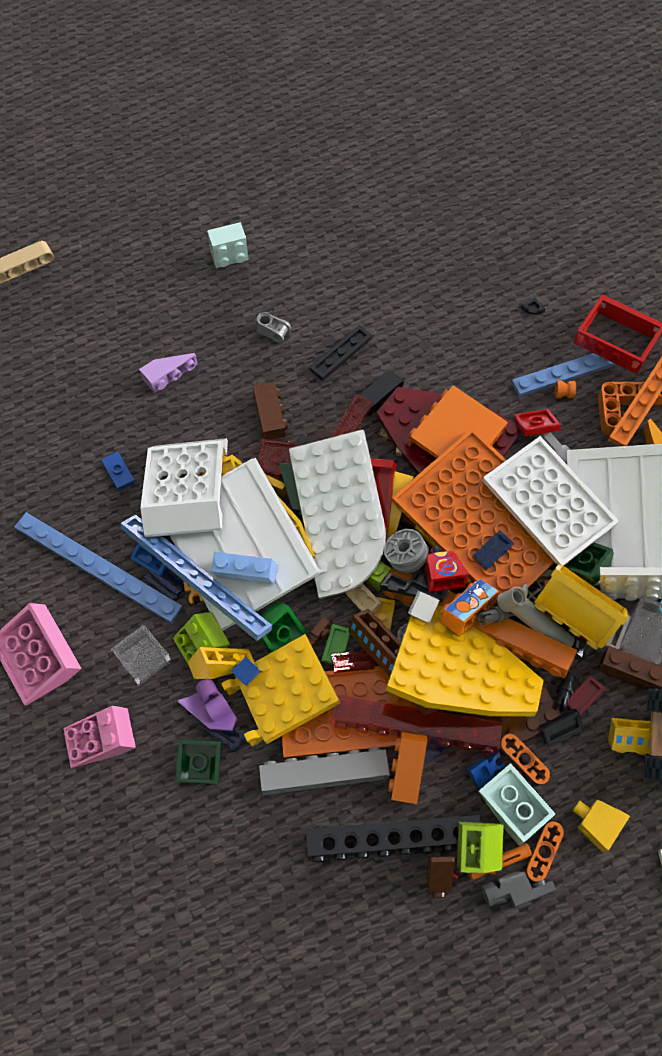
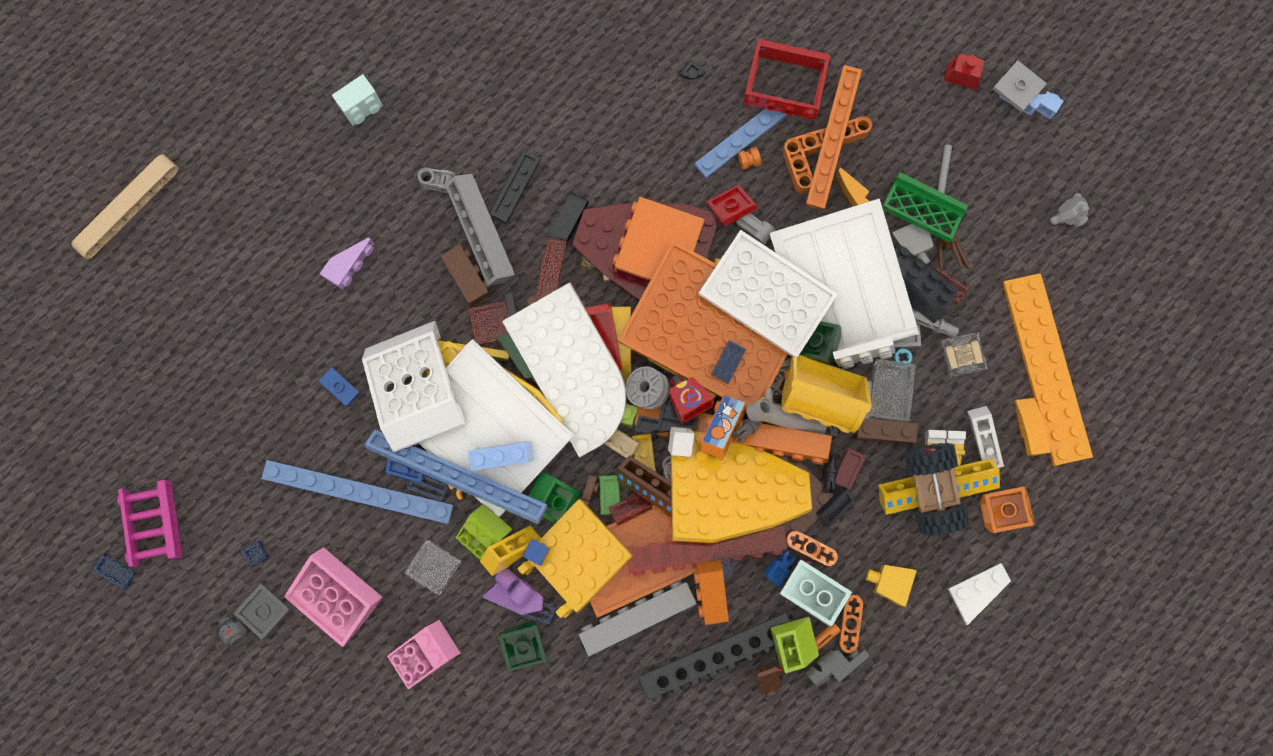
camera: 15 degrees left, 15 degrees up
(296, 376) = (479, 229): none -> light grey brick

